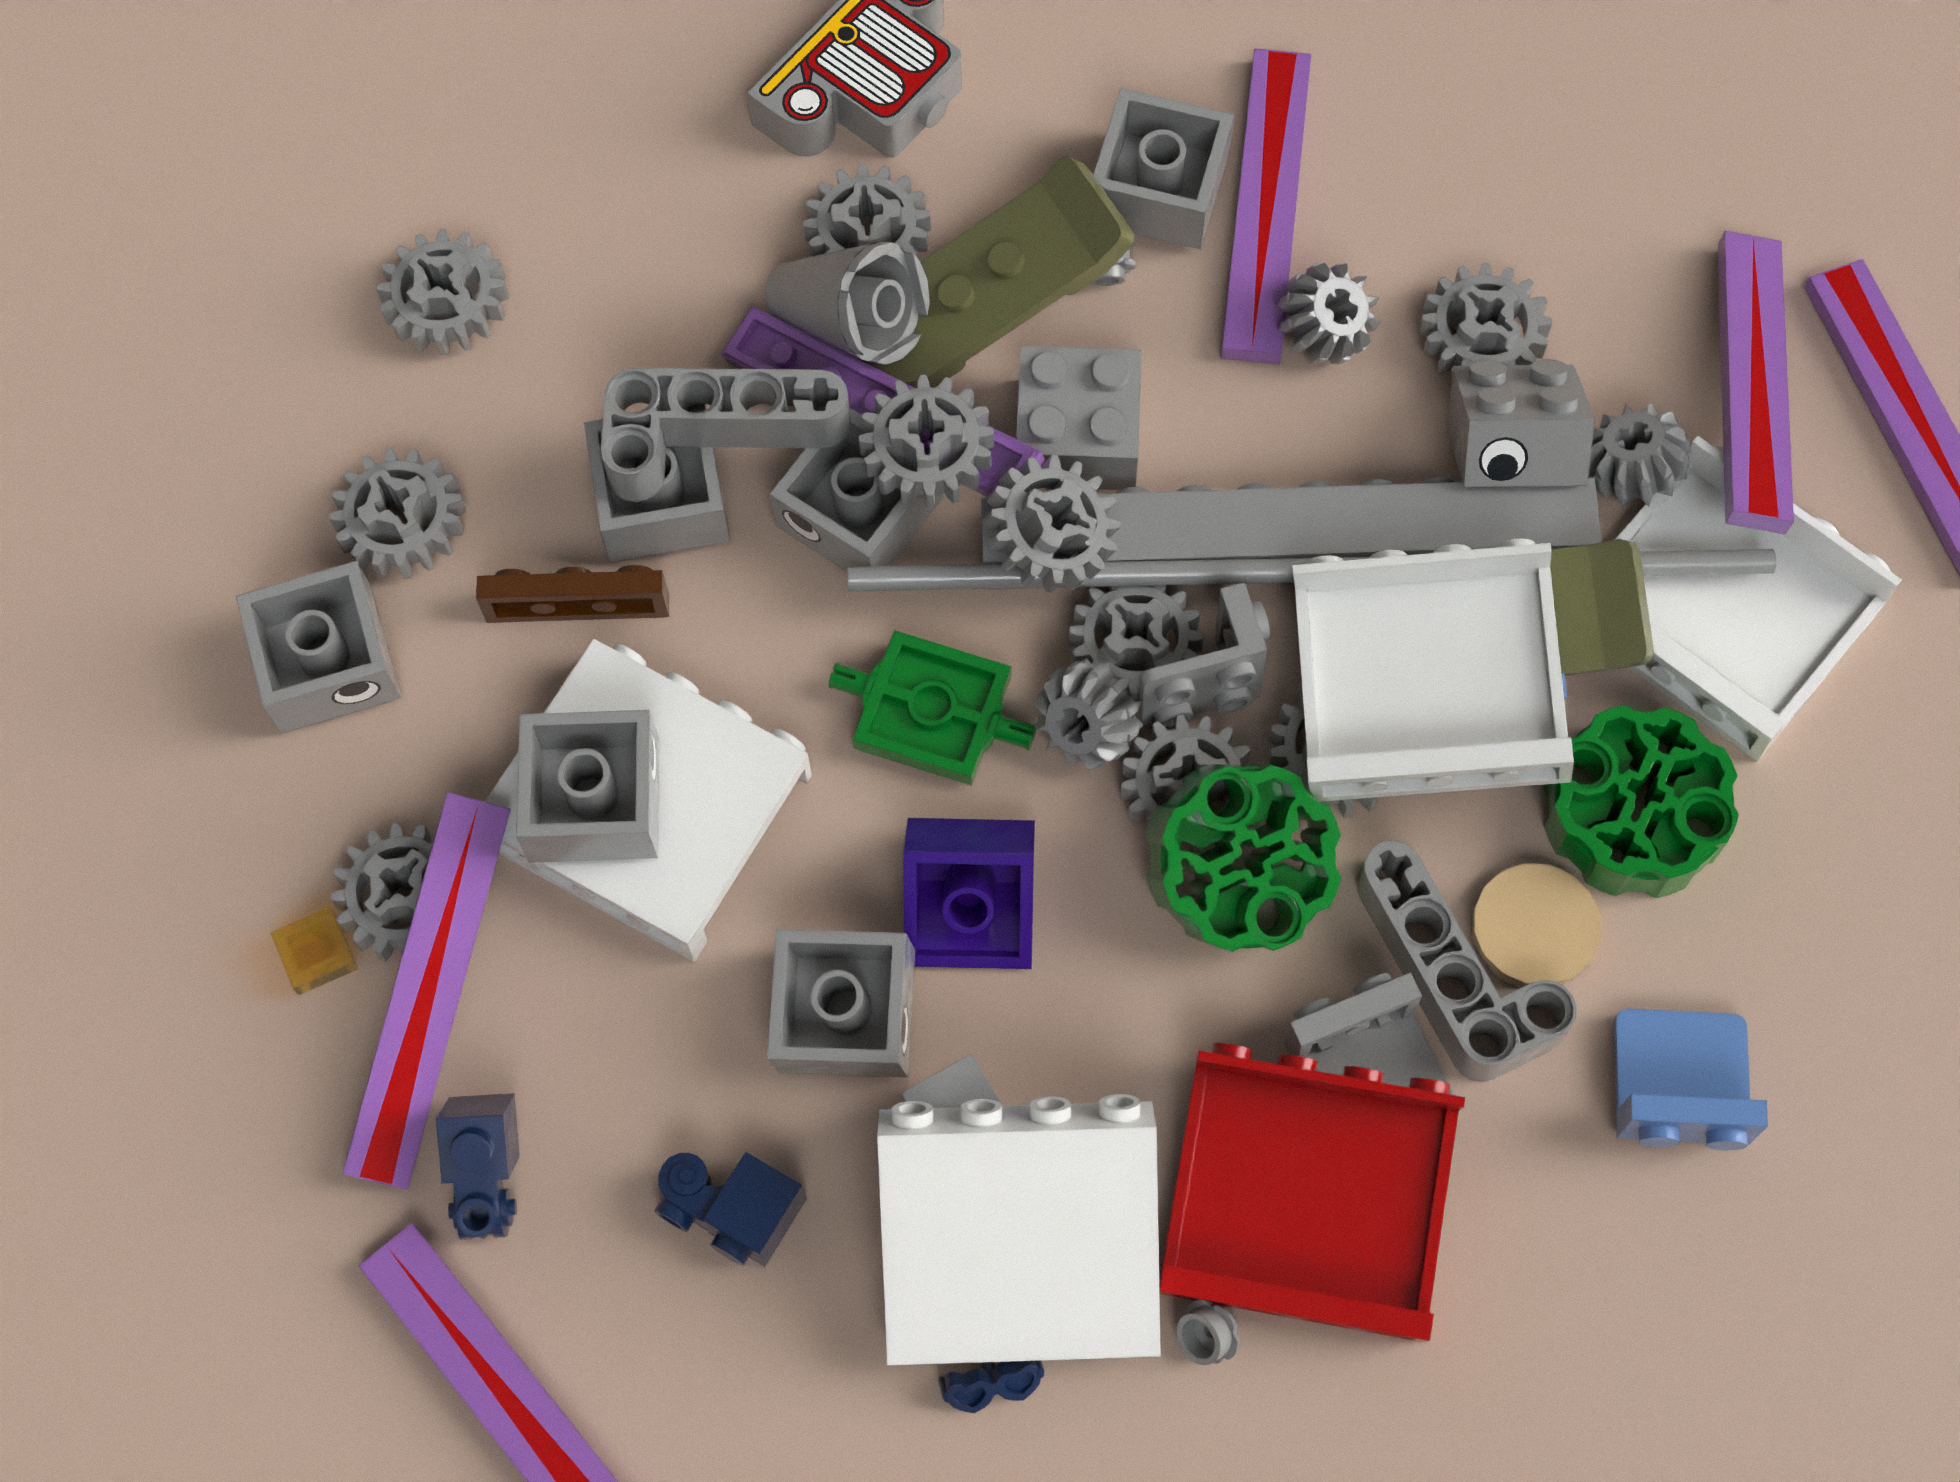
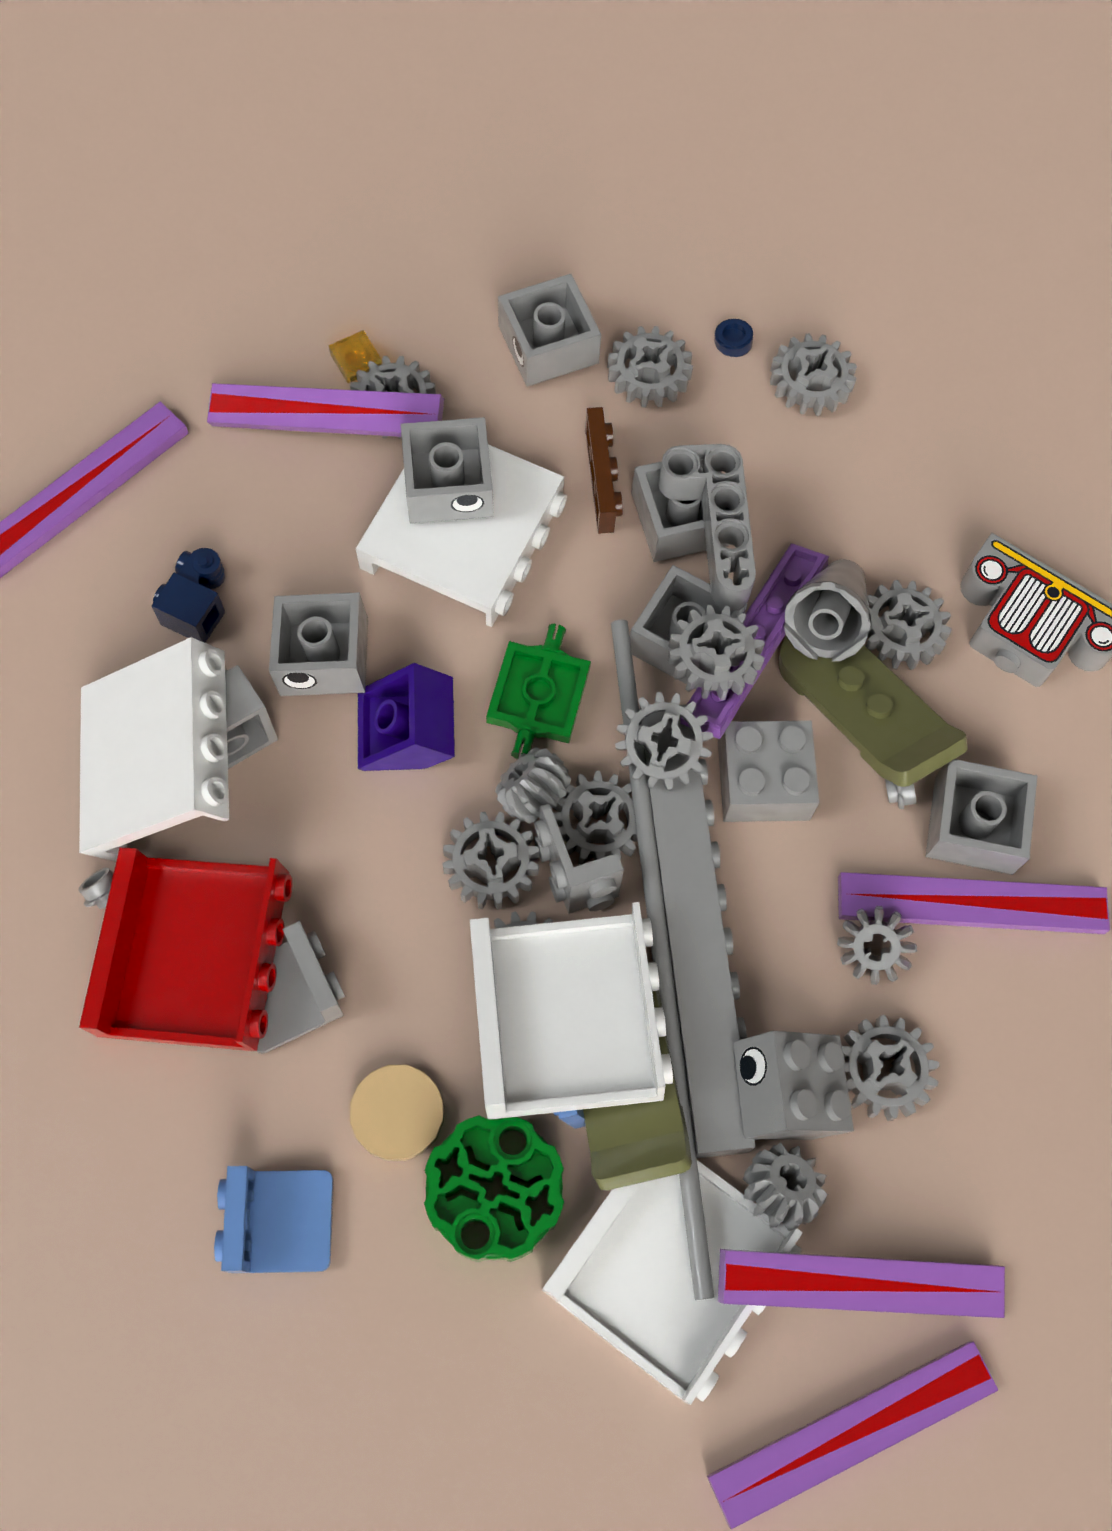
camera: 80 degrees right, 0 degrees up
(351, 397) = (734, 337): none -> dark blue tile
(476, 1154) = (222, 446): dark blue brick -> none
(977, 1387) = (70, 748): dark blue piece -> none
(1229, 915) = (431, 858): green connector -> none
(1453, 957) = (368, 1047): light grey beam -> none

